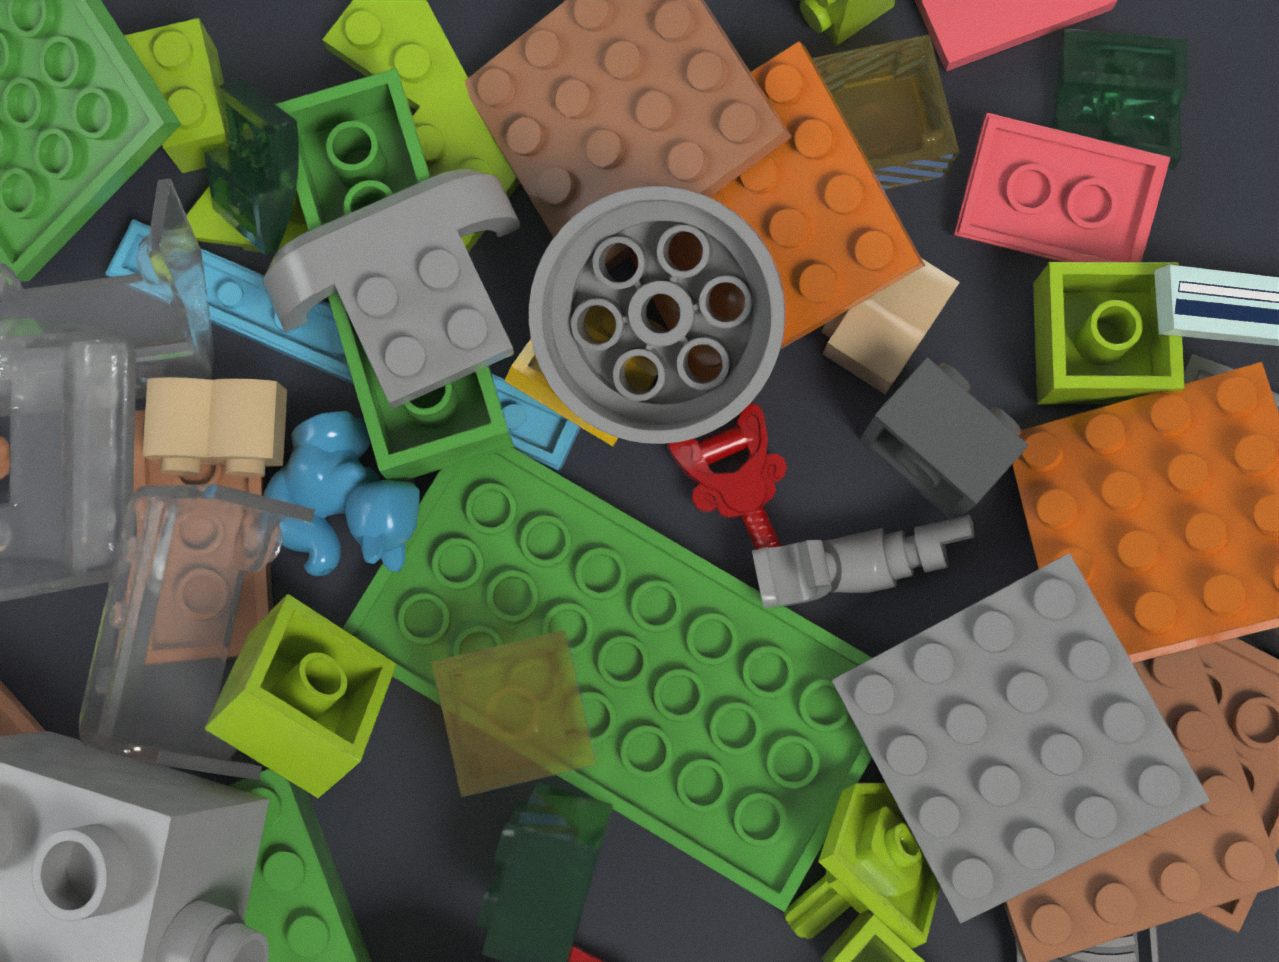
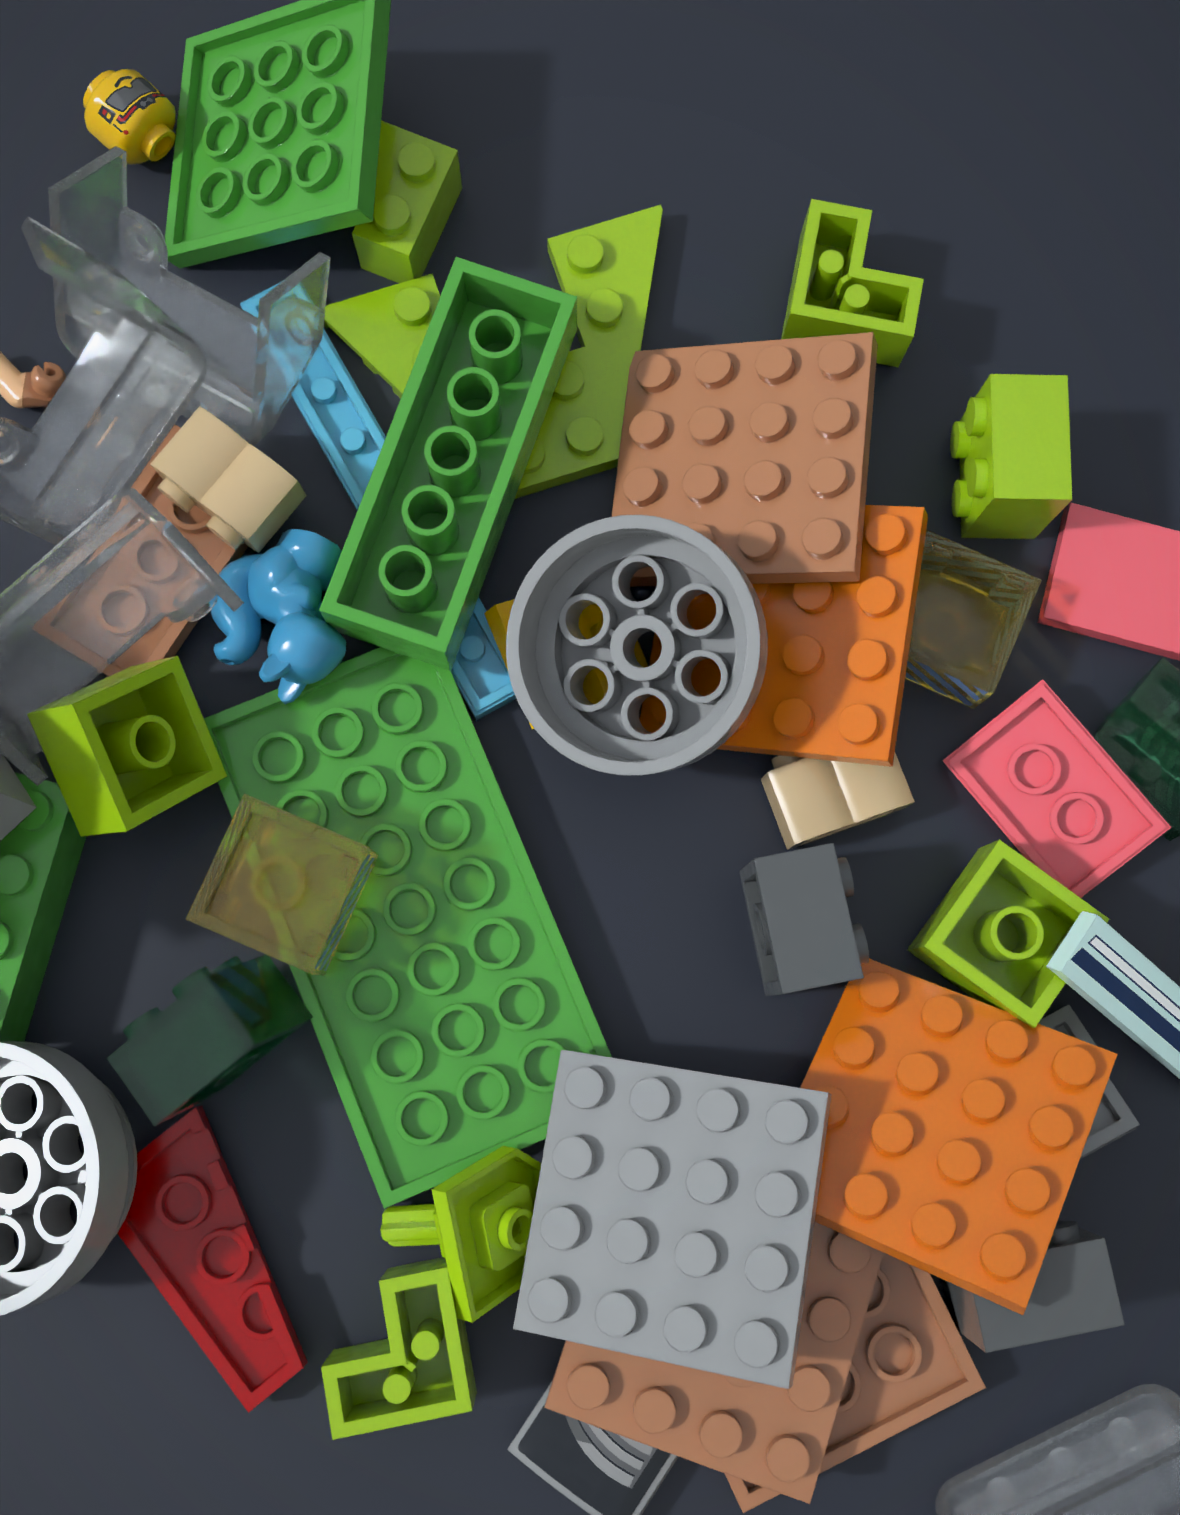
camera: 30 degrees right, 0 degrees up
(258, 169) = (409, 298): clear green slope -> none
(405, 281) = (455, 473): light grey piece -> none
(739, 492) = (609, 846): red piece -> none
(853, 562) = (654, 966): light grey piece -> none

